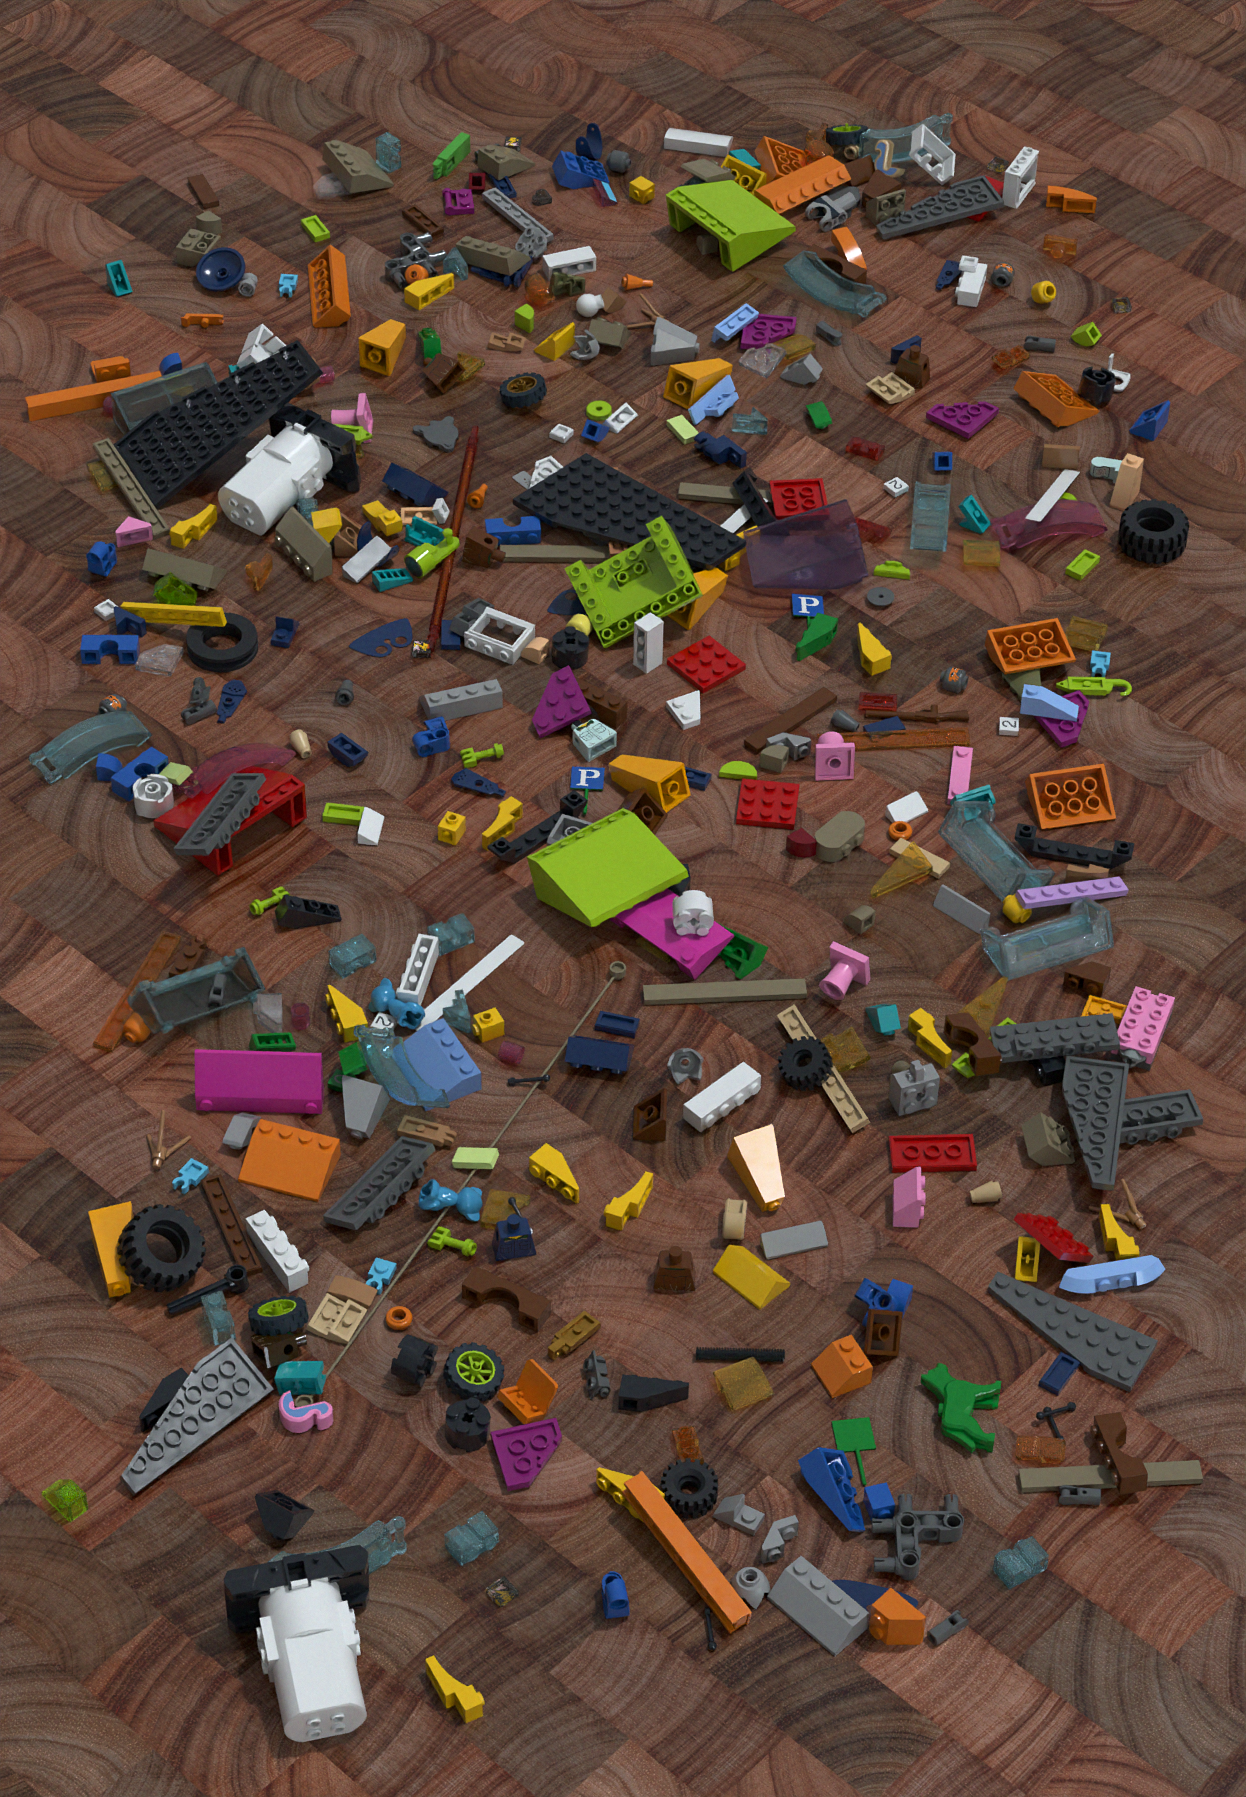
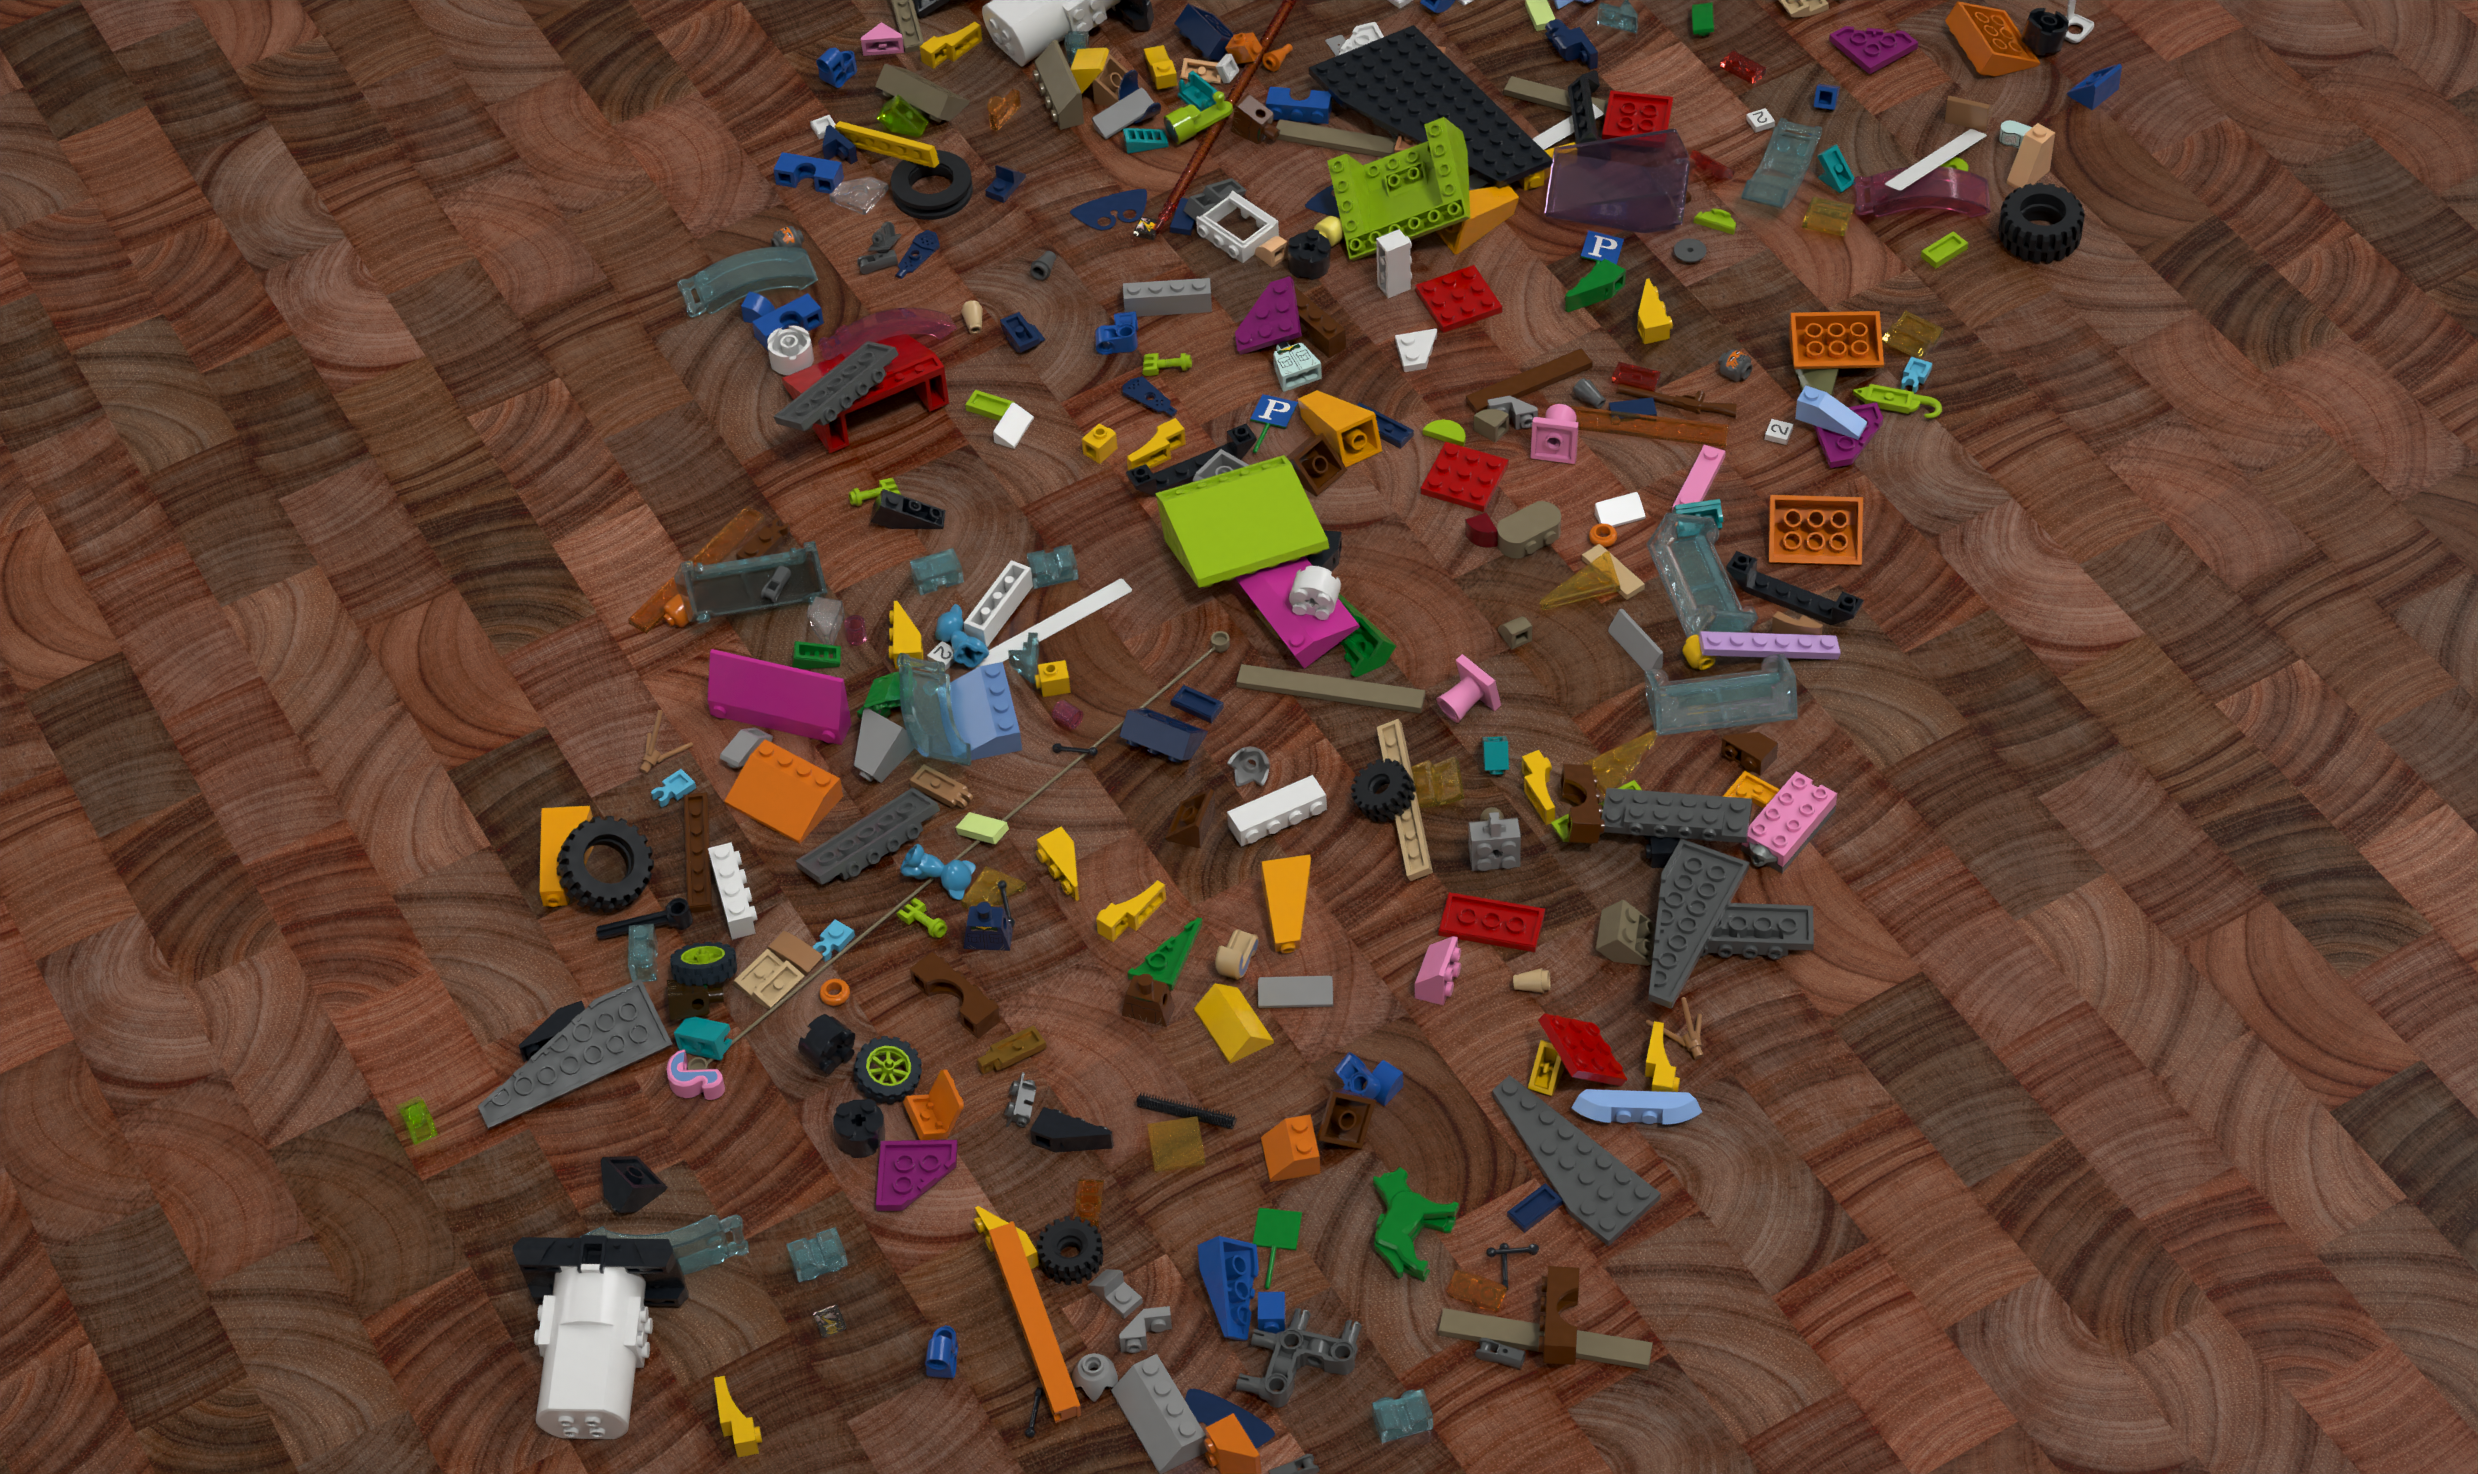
camera: 20 degrees right, 5 degrees up
(176, 773) = (823, 328): yellowish green tile -> none
(451, 491) = (1244, 47): none -> orange brick
(676, 1231) = (1170, 957): none -> green wing

